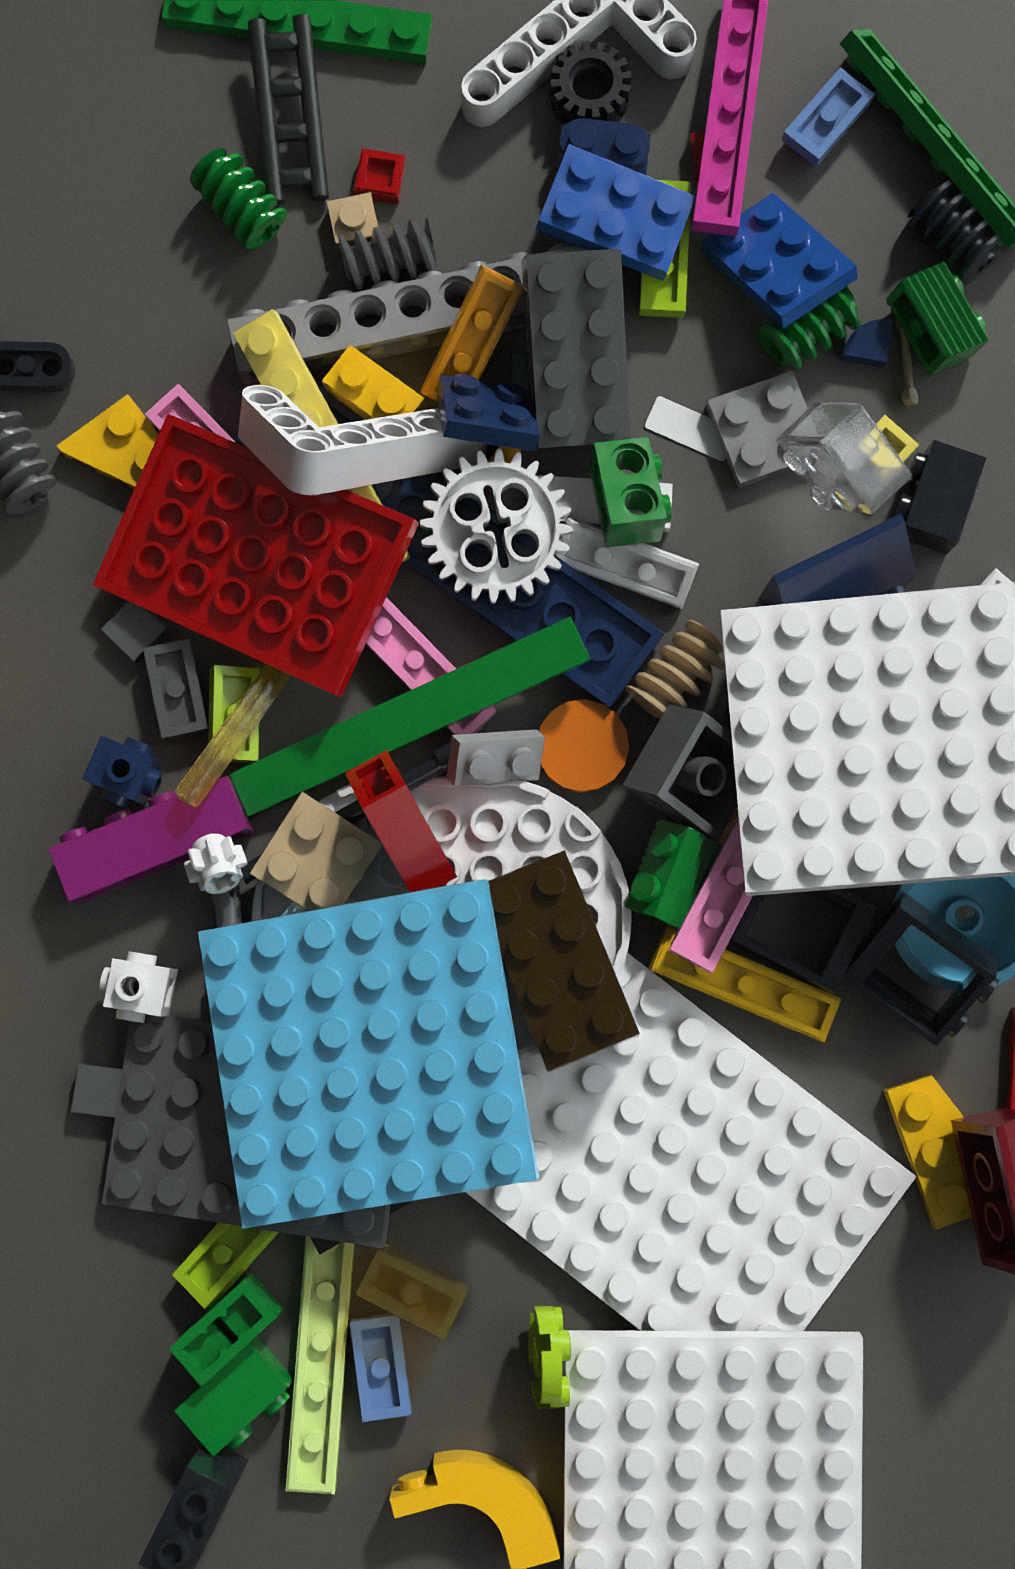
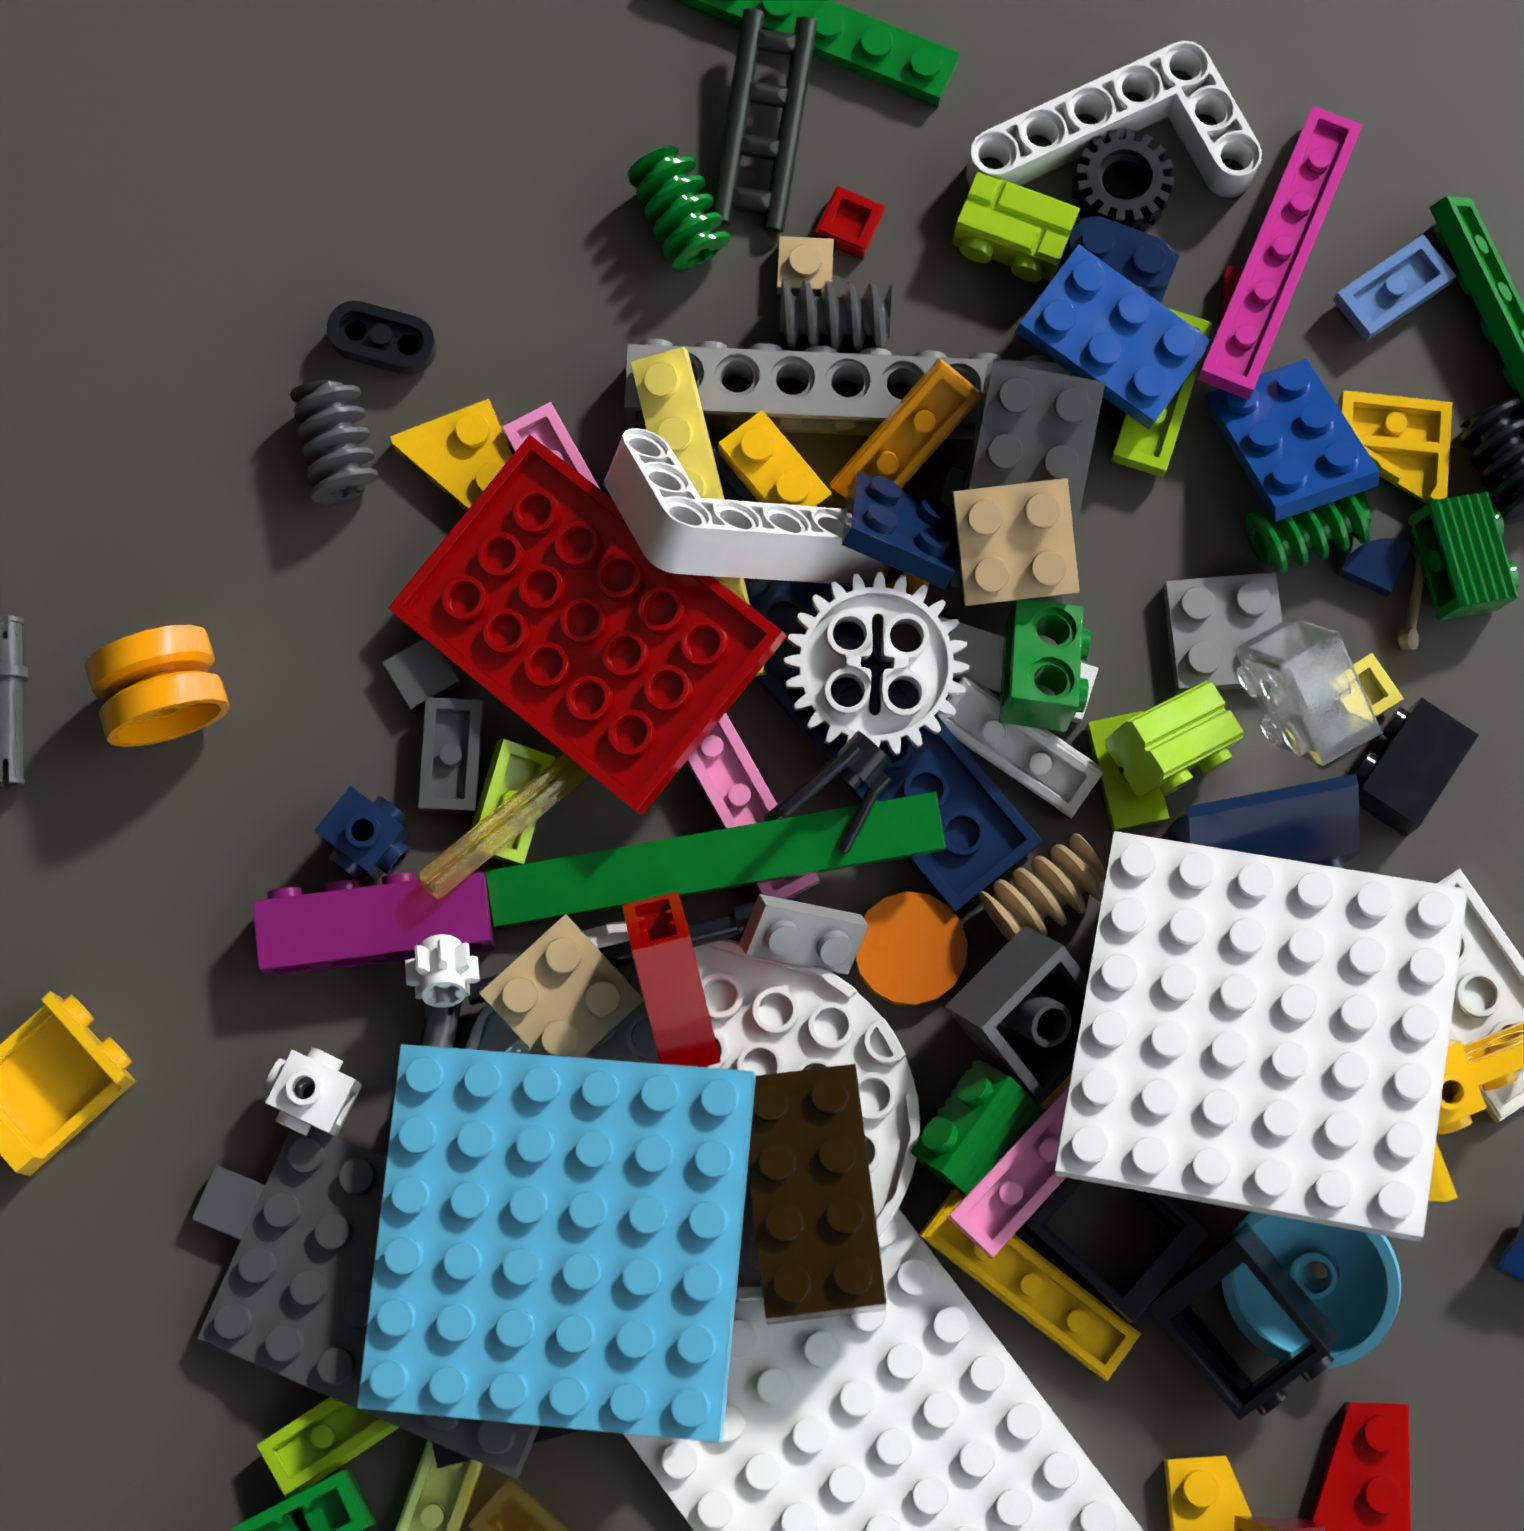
camera: 15 degrees right, 5 degrees down
(502, 611) = (856, 764): none -> black plant
(513, 145) = (1014, 227): none -> lime brick
(582, 397) = (1015, 541): none -> tan plate
(685, 427) = (1131, 605): white sticker -> none
(720, 562) = (1122, 805): none -> lime plate
(747, 524) = (1175, 739): none -> lime brick
(868, 235) = (1404, 439): none -> yellow wing

